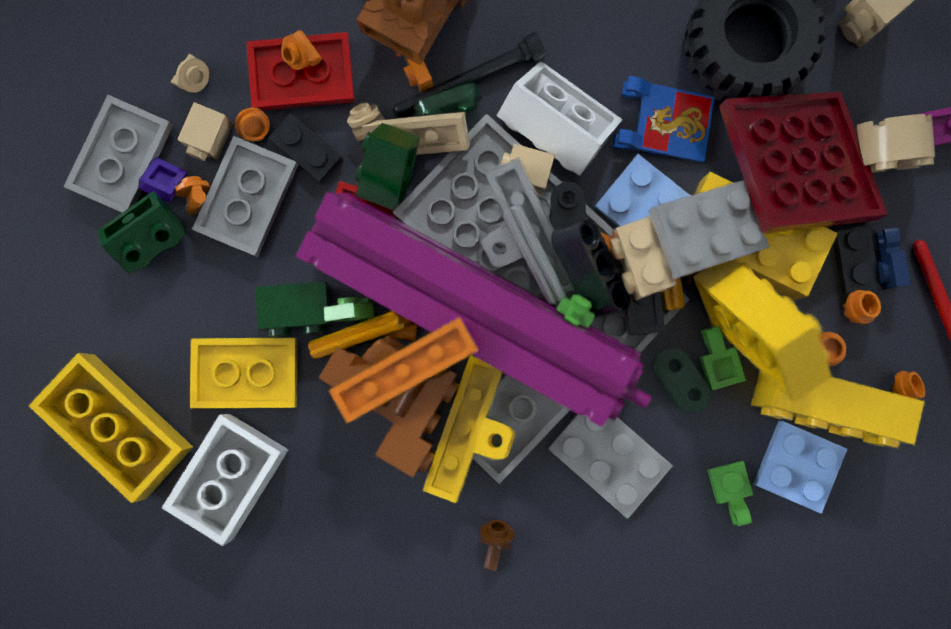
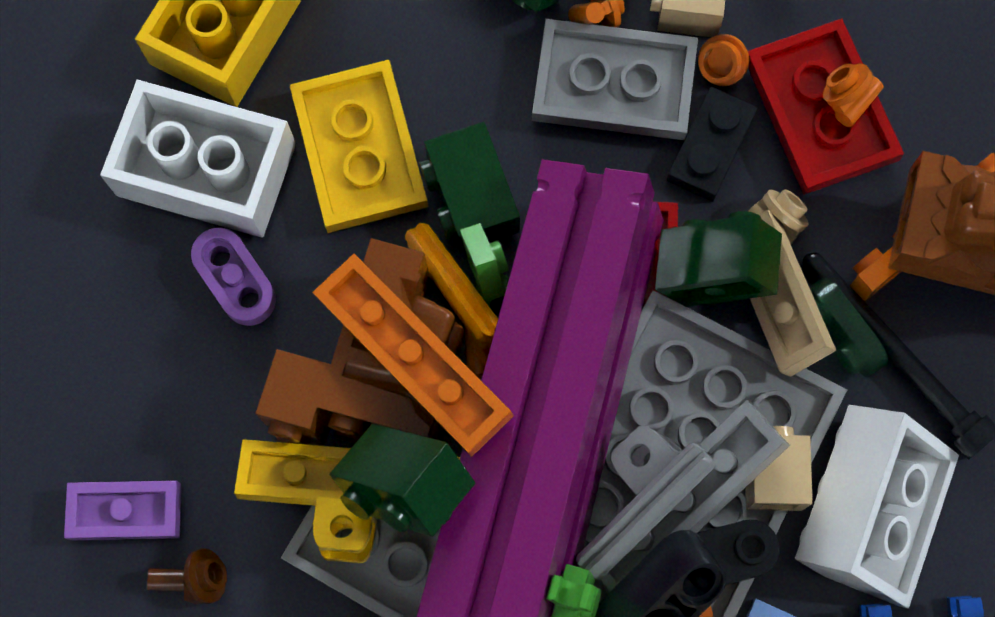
camera: 75 degrees right, 10 degrees down
(311, 474) = (235, 278): none -> medium lavender plate
(443, 576) = (123, 510): none -> medium lavender plate
(481, 395) = (402, 480): none -> dark green brick

